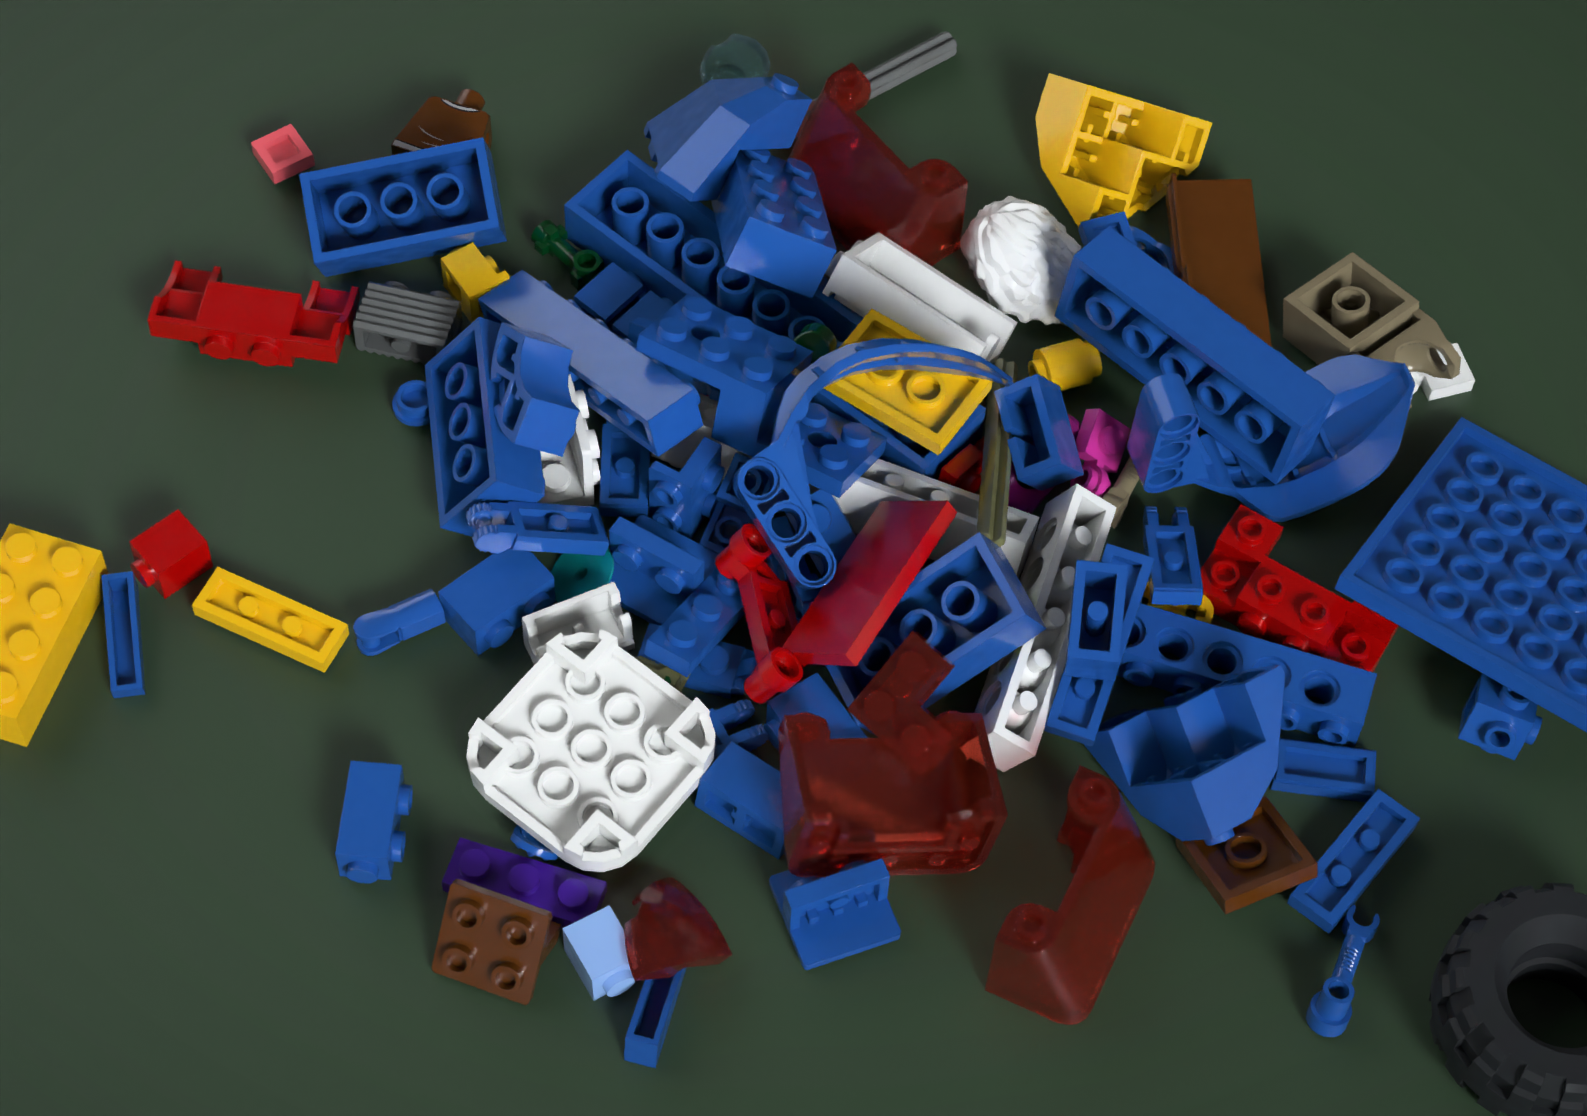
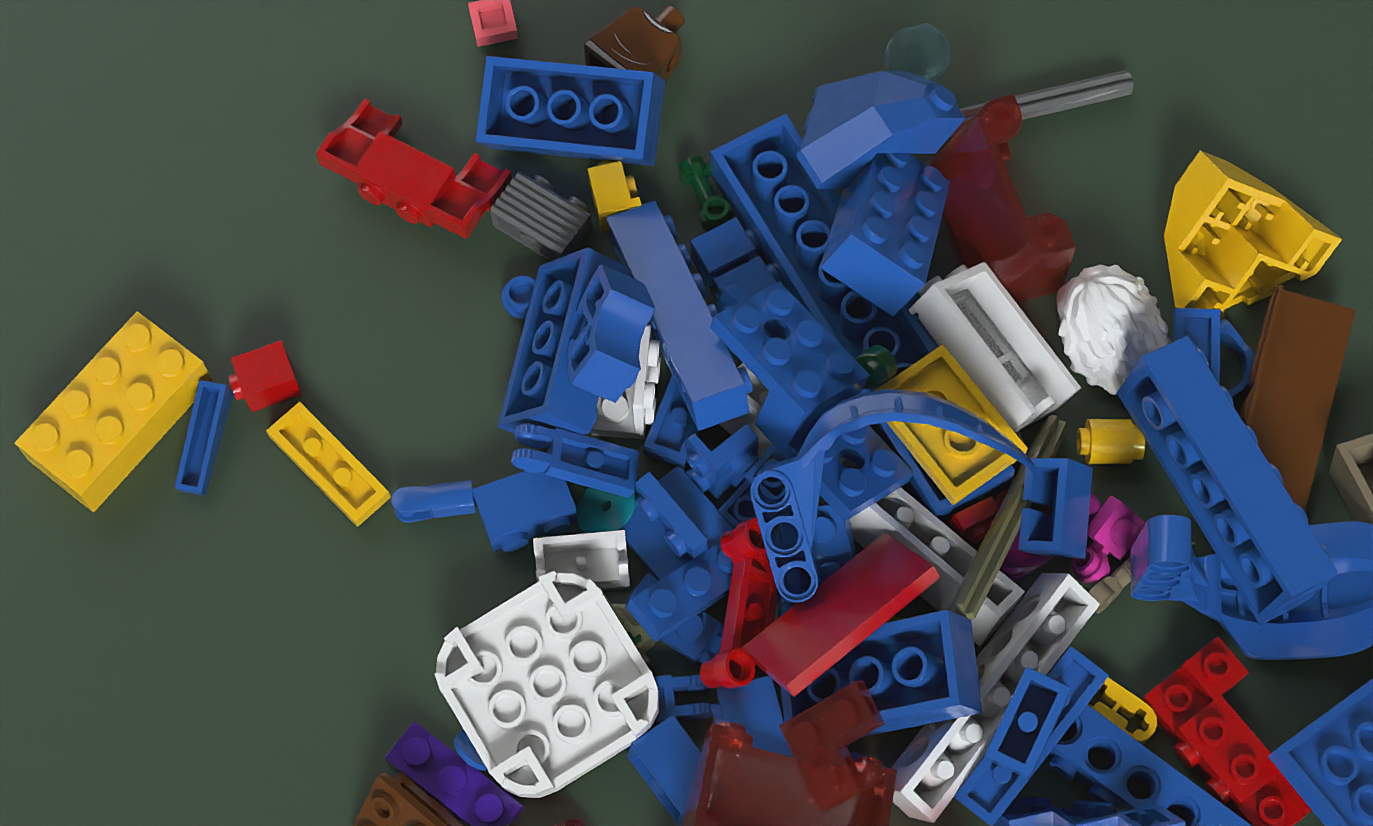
camera: 25 degrees right, 10 degrees up
(371, 821) = (344, 682): blue brick -> none
(1176, 566) = (1134, 668): blue hinge -> none

